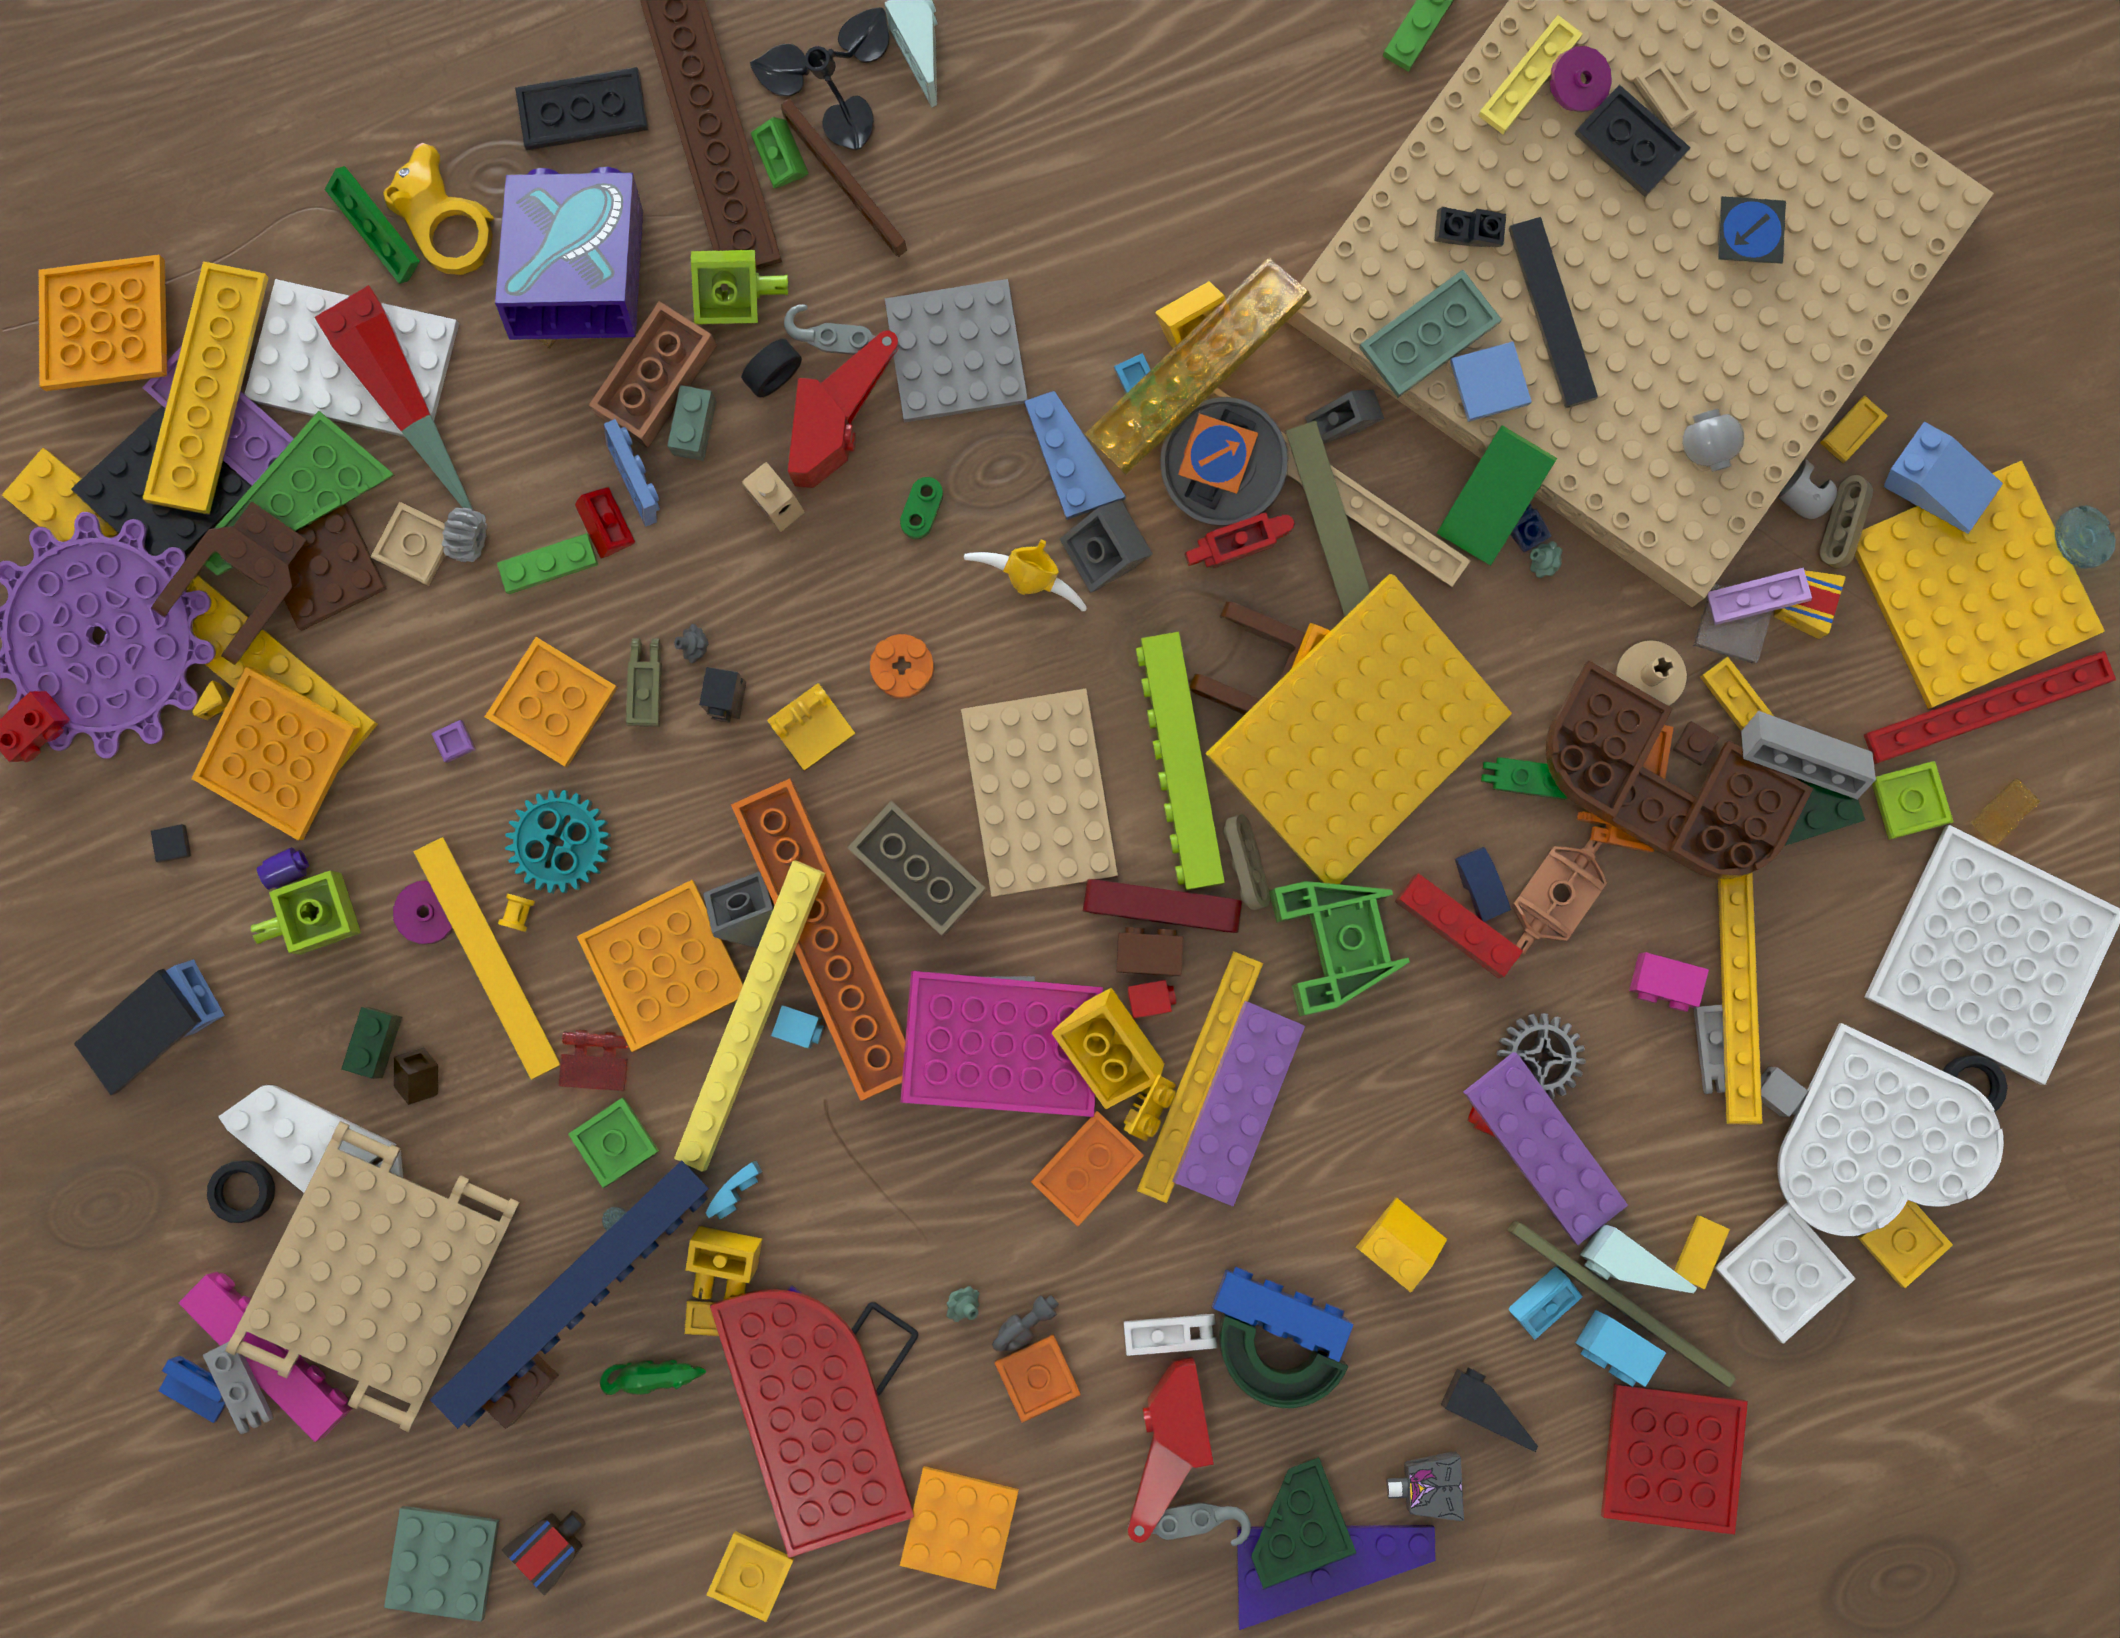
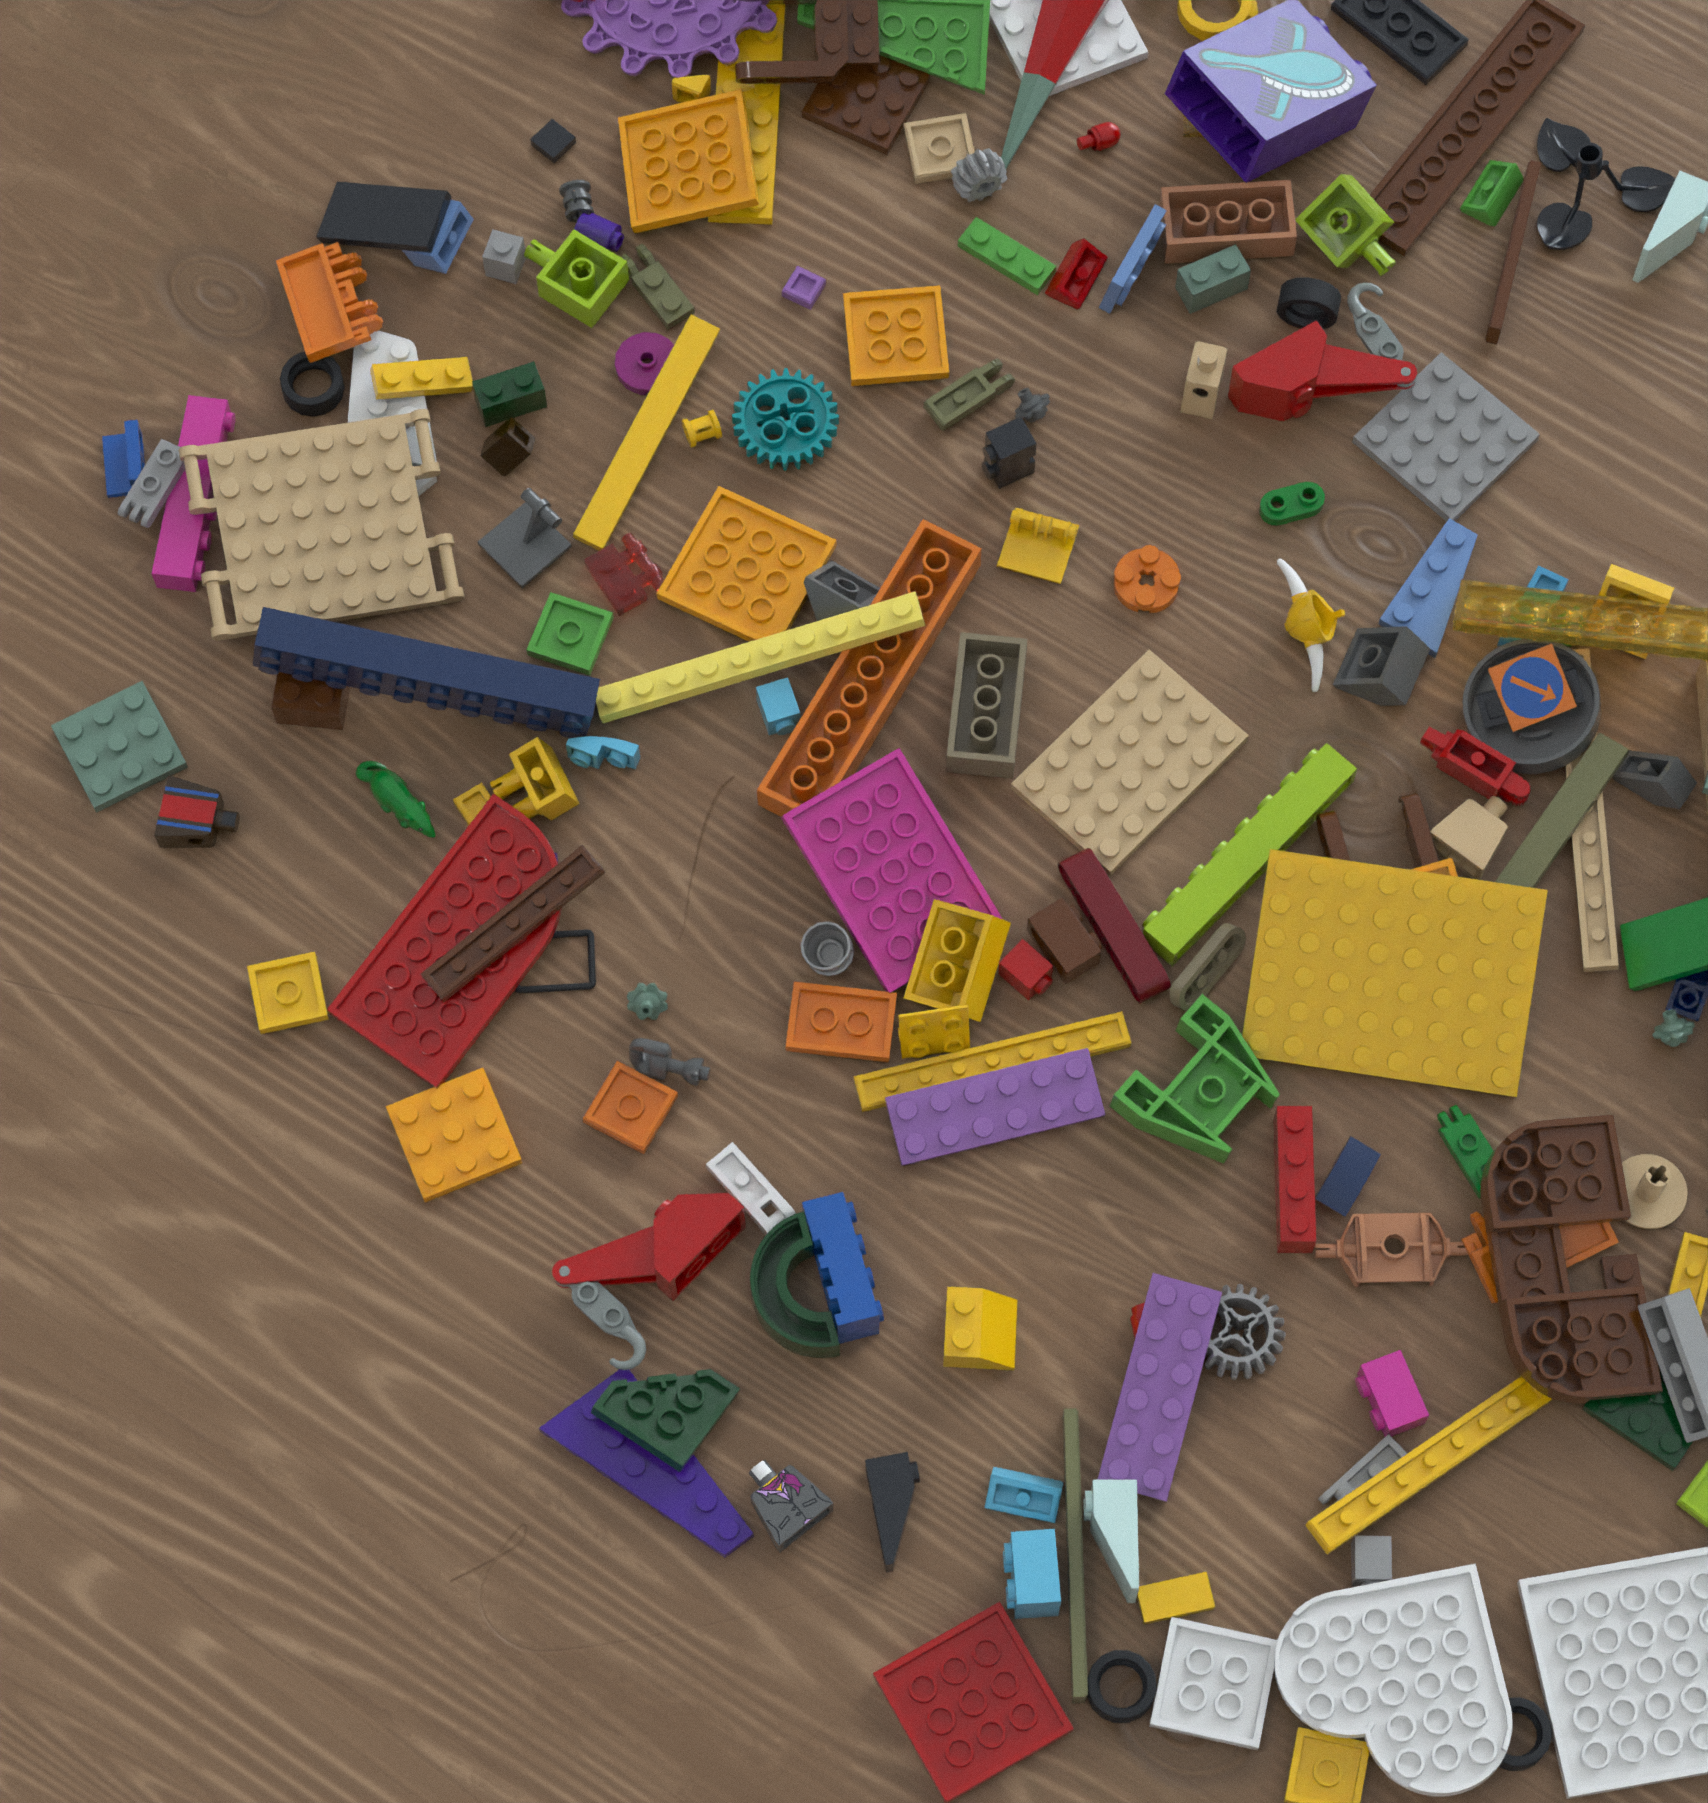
camera: 50 degrees right, 15 degrees down
(170, 1133) = (325, 302): none -> orange hinge
(239, 864) = (576, 200): none -> dark grey bush
(246, 959) = (504, 256): none -> light grey brick
(304, 1102) = (421, 378): none -> yellow plate
(367, 856) = (659, 289): none -> olive hinge
(501, 413) = (1100, 137): none -> red cylinder
(509, 1122) = (526, 540): none -> dark grey plate
(828, 1367) = (512, 923): none -> reddish brown tile
(1028, 1130) = (829, 943): none -> light grey helmet
(1290, 585) = (1471, 835): none -> tan torso
(1764, 1335) = (1131, 1660): none -> black tyre

